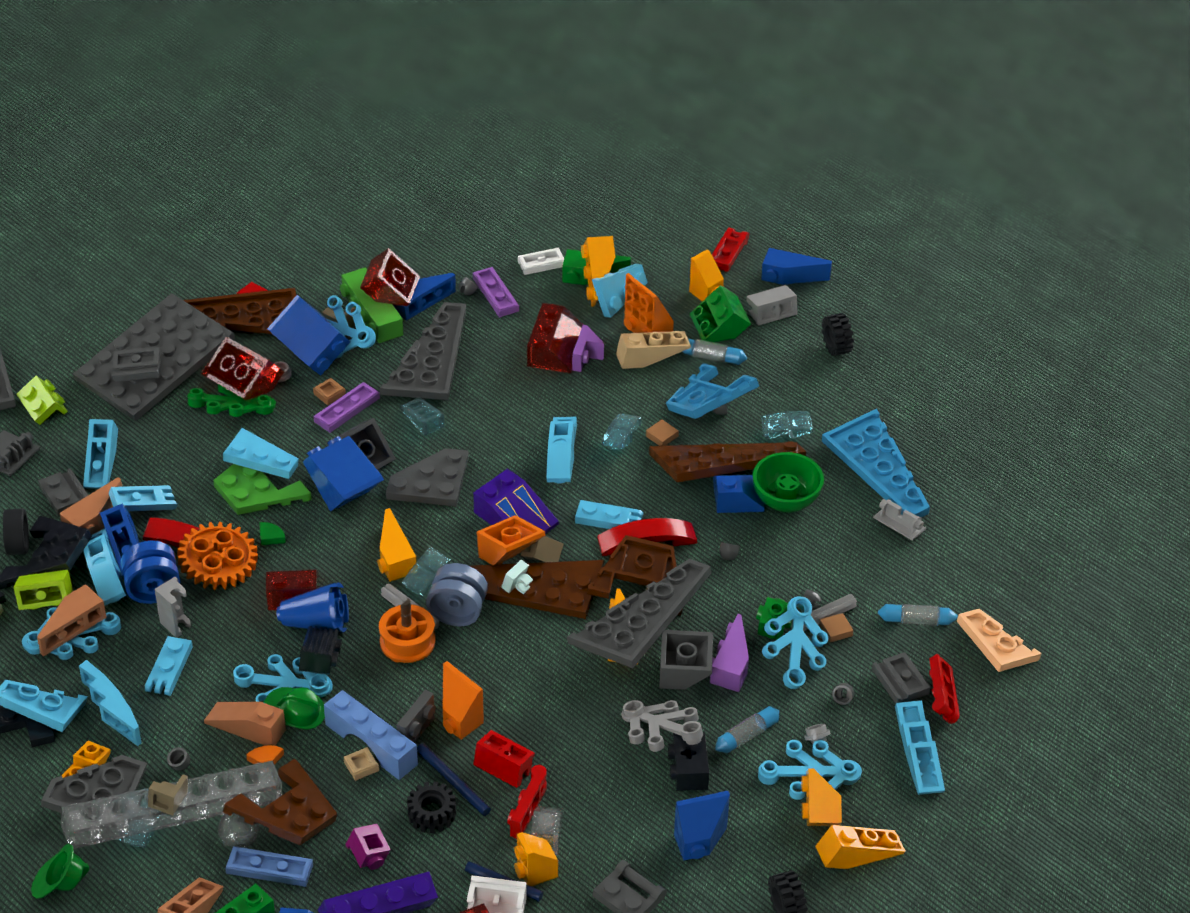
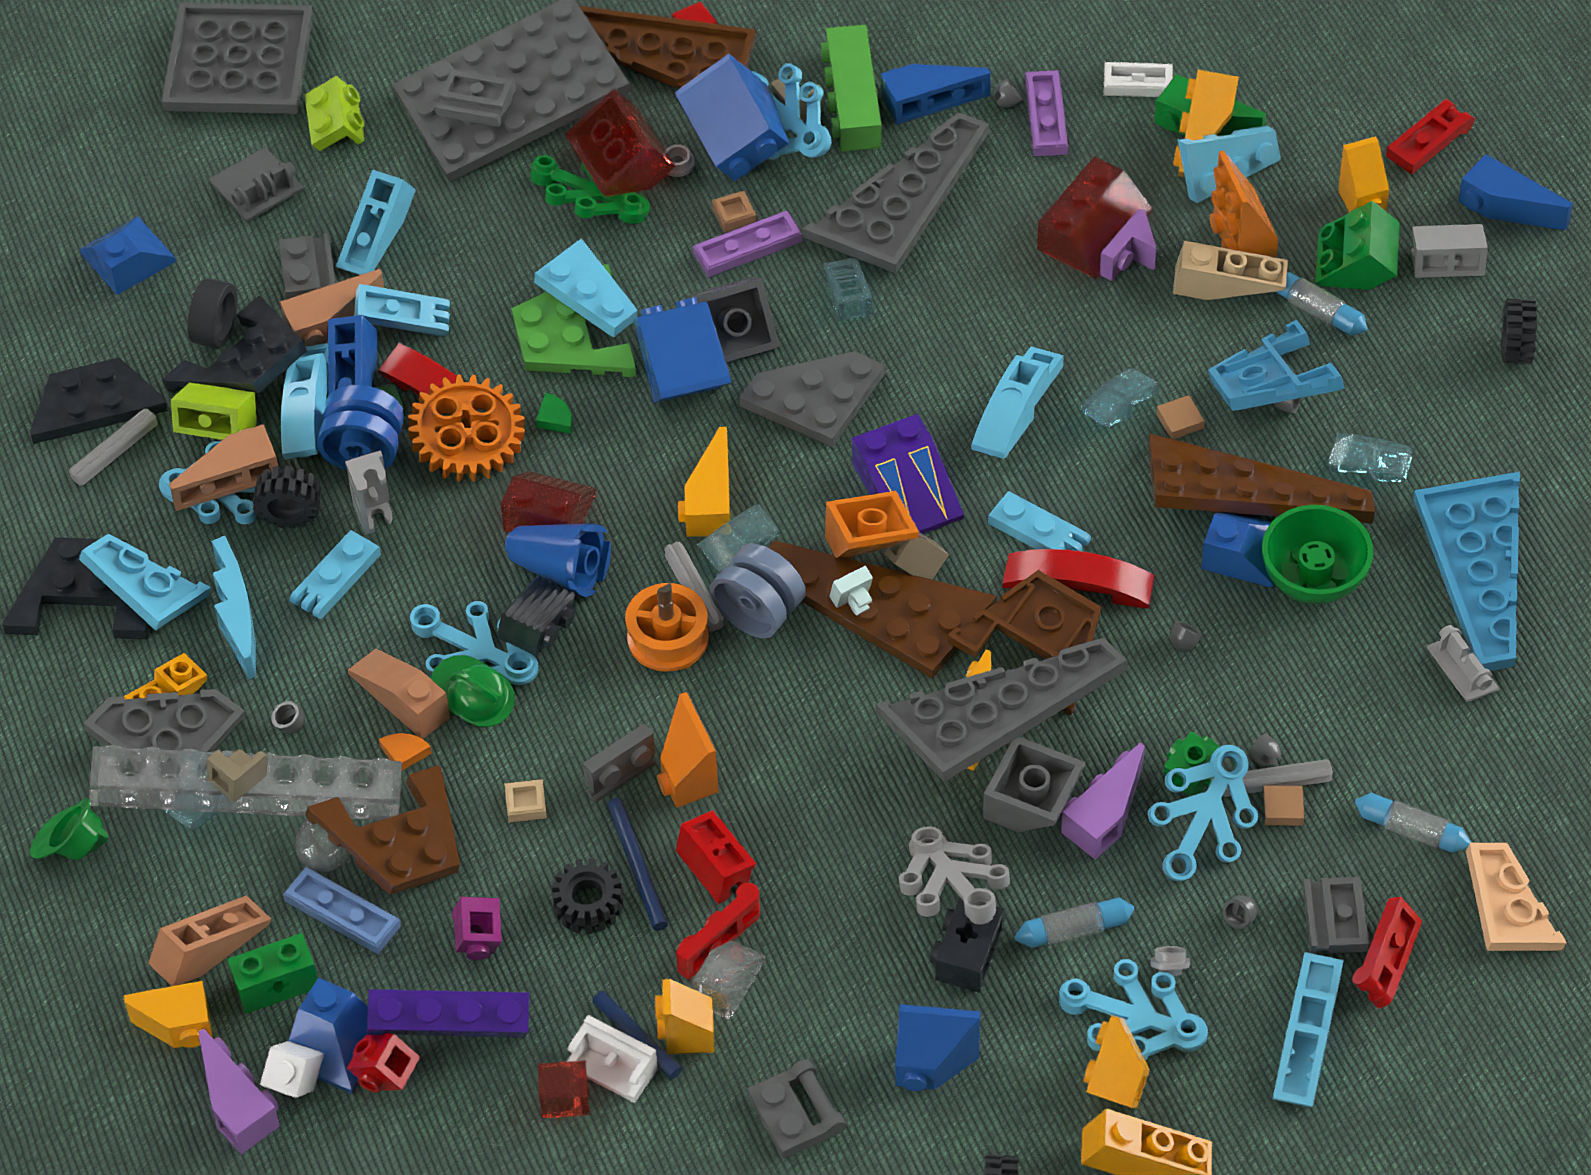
camera: 25 degrees right, 10 degrees up
(116, 616) = (287, 497): none -> black tyre
(390, 279) = (886, 58): clear red slope -> none
(392, 749) = (562, 778): medium blue arch -> none

